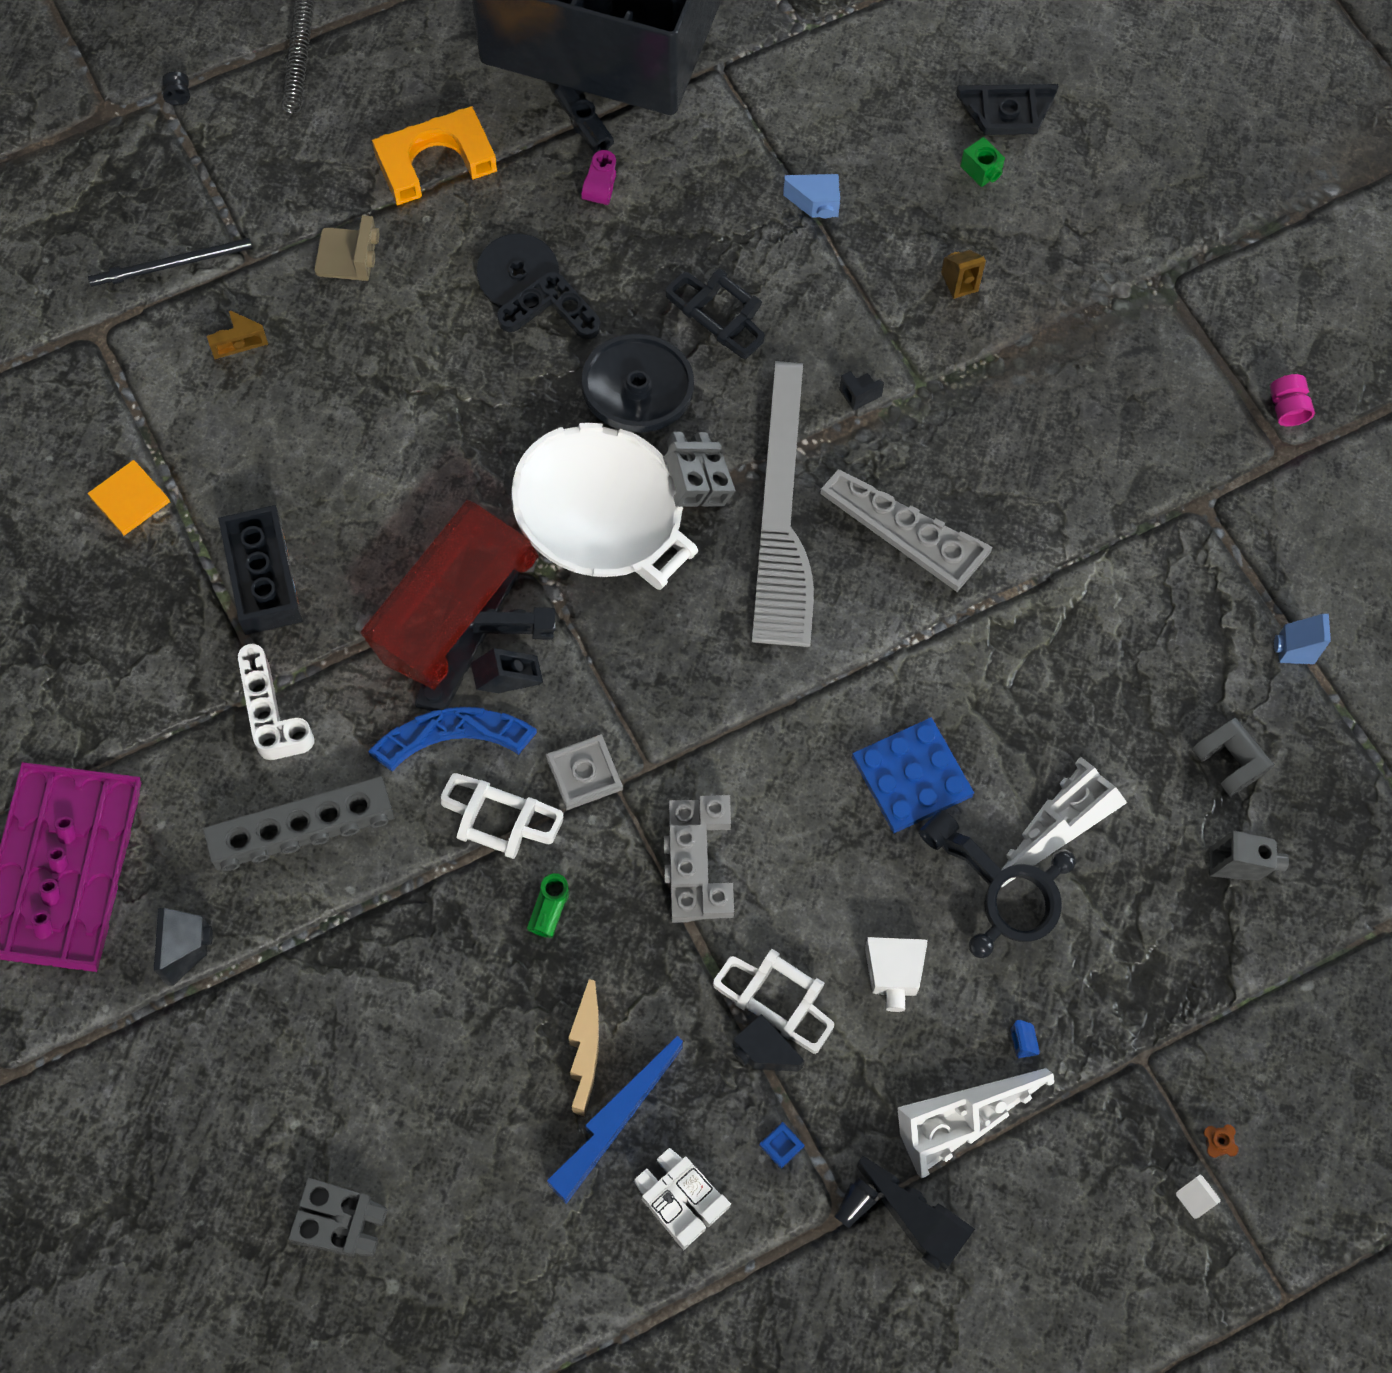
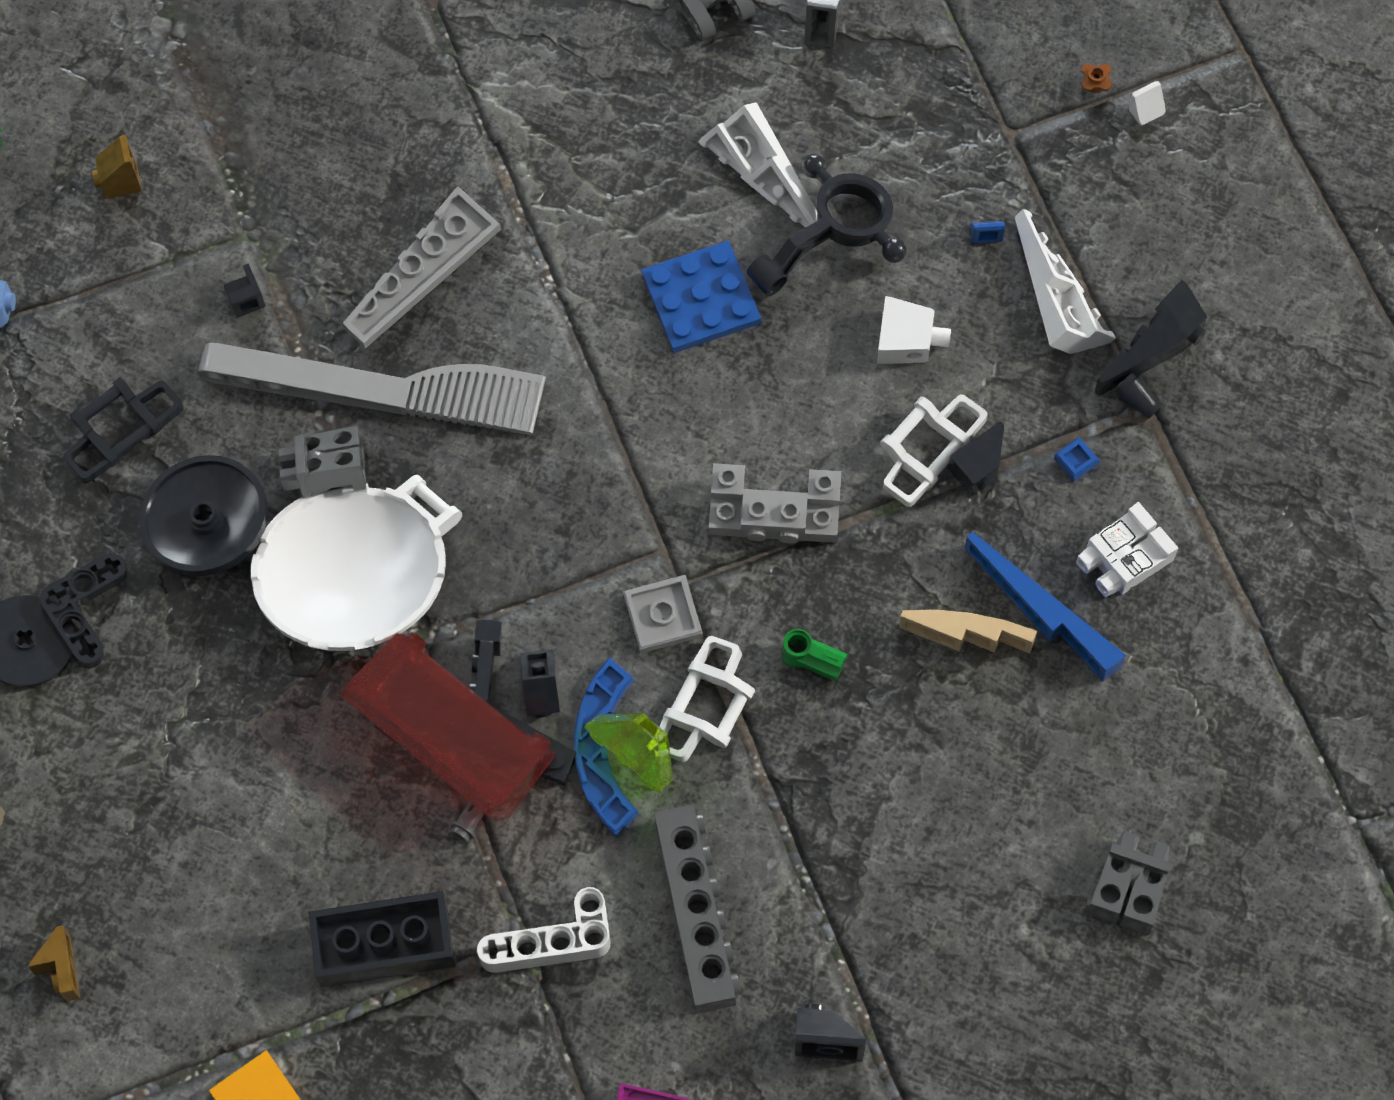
camera: 80 degrees left, 0 degrees up
(446, 755) = (636, 745): none -> clear neon green slope

